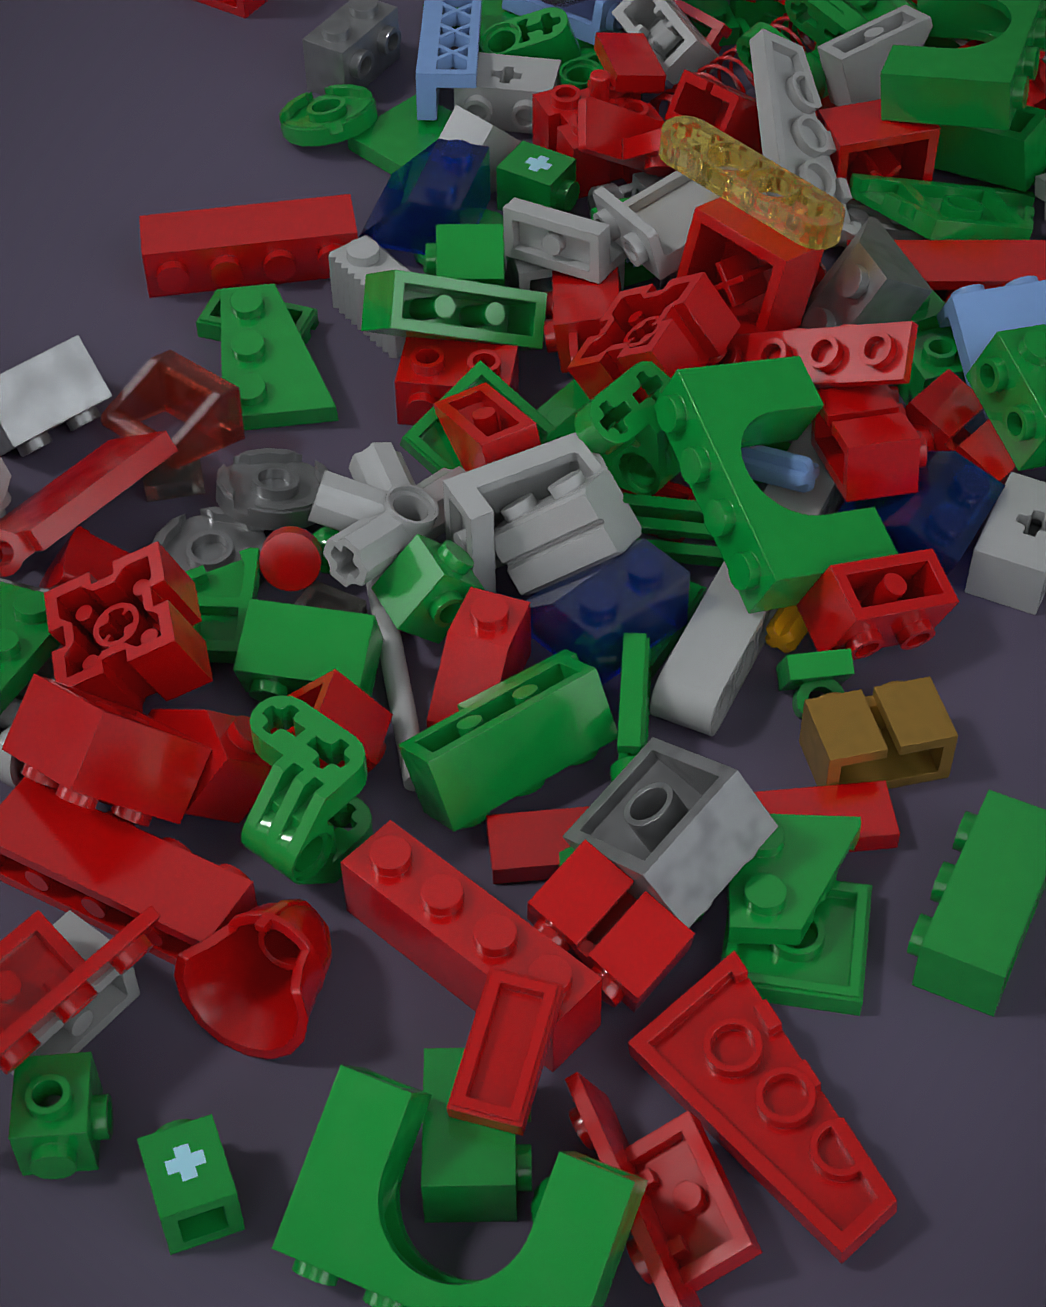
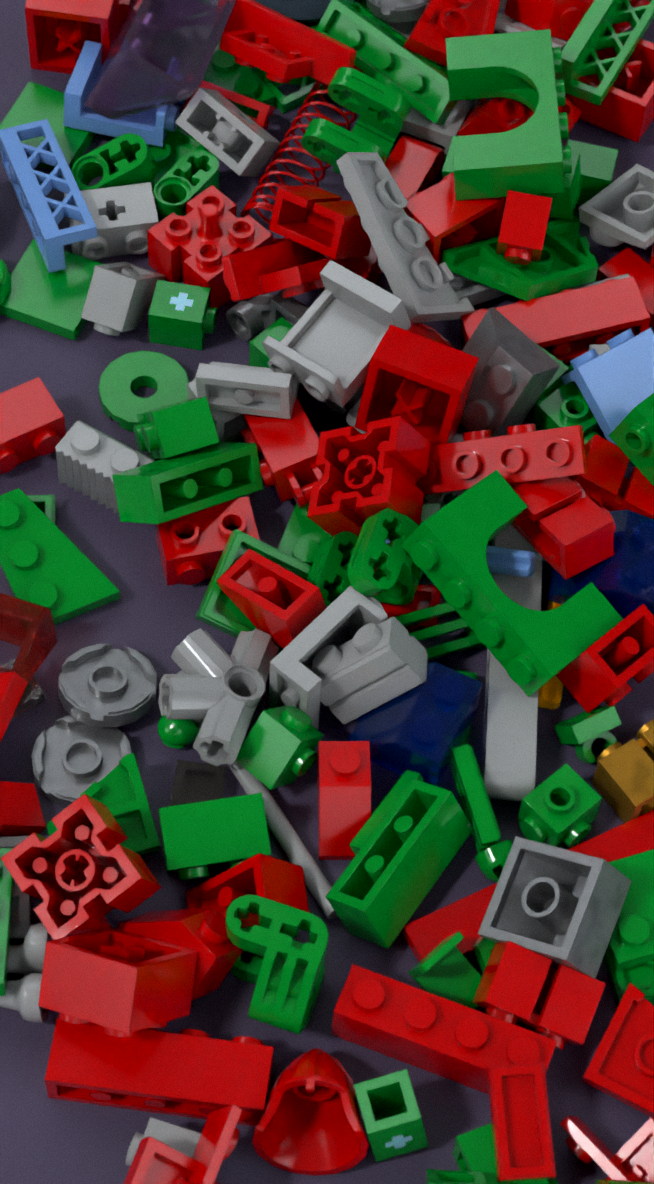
camera: 25 degrees left, 10 degrees up
(290, 558) = (158, 750): red tile -> none
(357, 1002) = (391, 1115): none -> green brick
(435, 187) = (105, 364): clear blue slope -> none
(510, 869) = (448, 973): none -> green bracket
(630, 62) = (217, 177): red tile -> none
(744, 737) = (559, 810): none -> green brick
(800, 214) = (400, 325): clear yellow beam -> none
(857, 57) = (421, 134): light grey slope -> none
(953, 161) = (523, 227): none -> red slope

